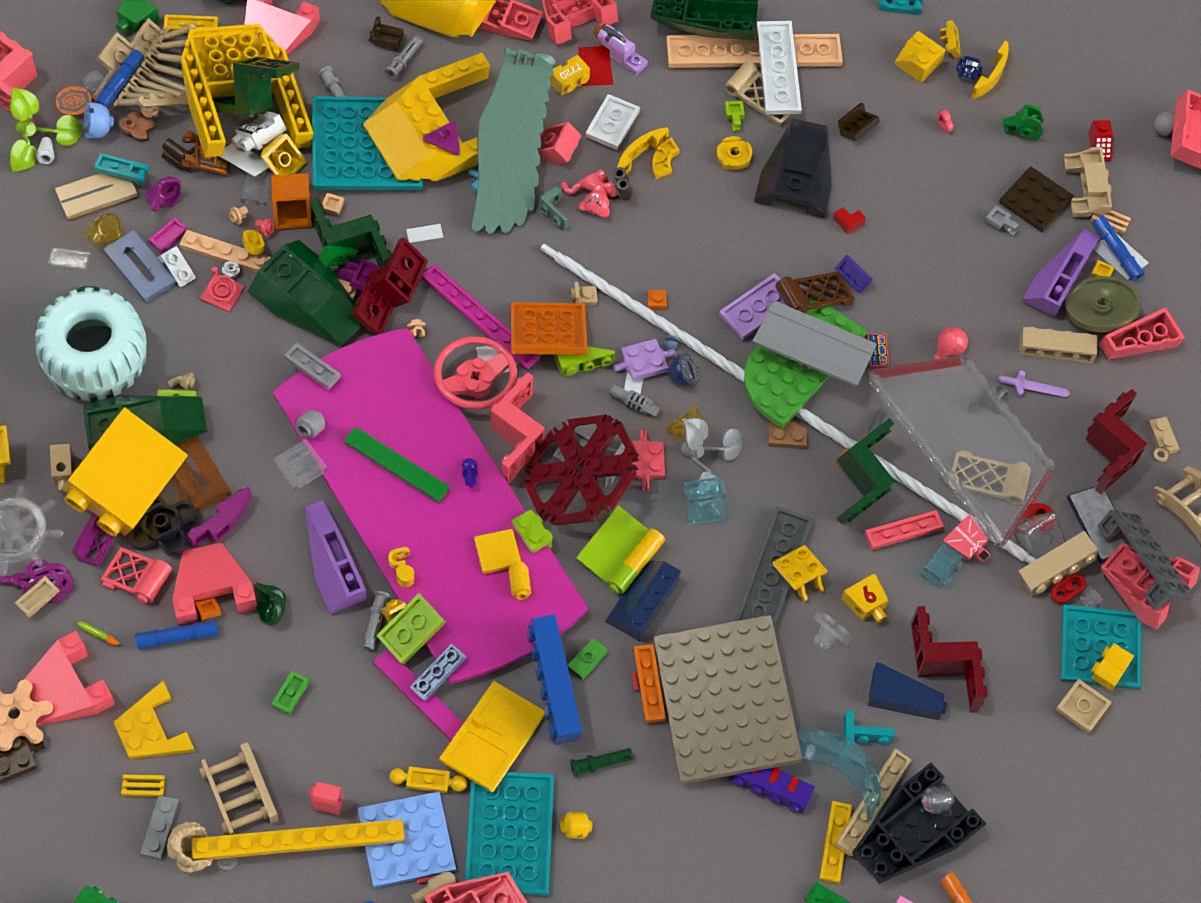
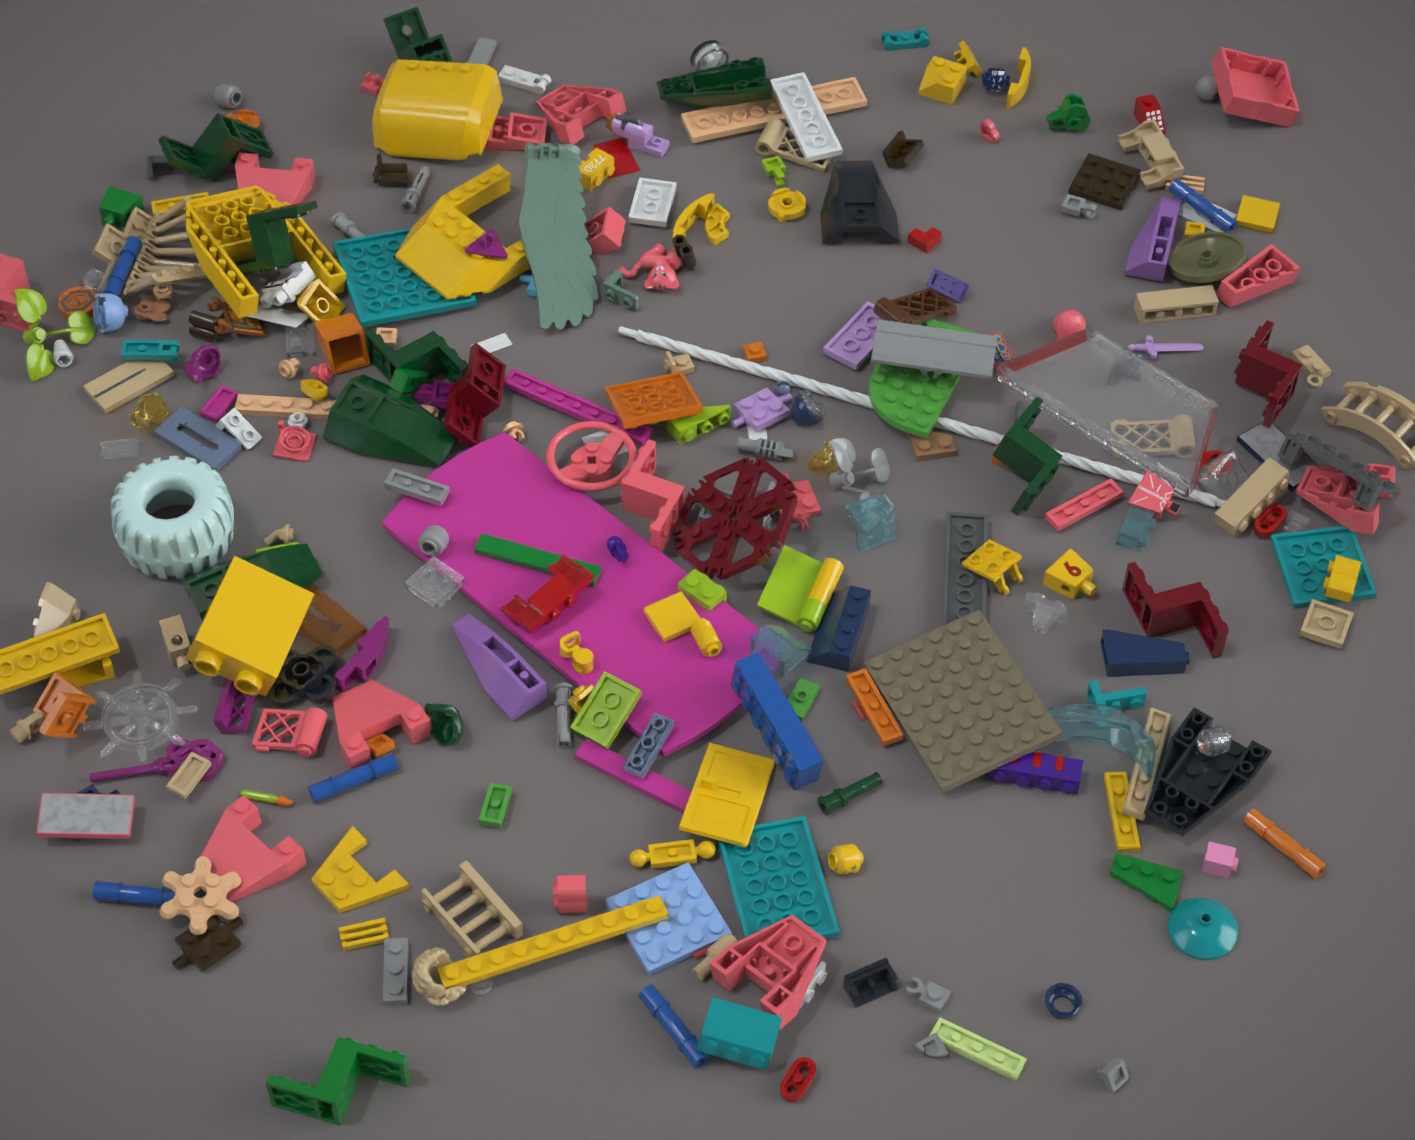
camera: 10 degrees left, 10 degrees down
(396, 508) = (551, 598): none -> red bracket
(581, 607) = (778, 648): none -> clear light blue slope
(1168, 267) = (1257, 214): none -> yellow tile

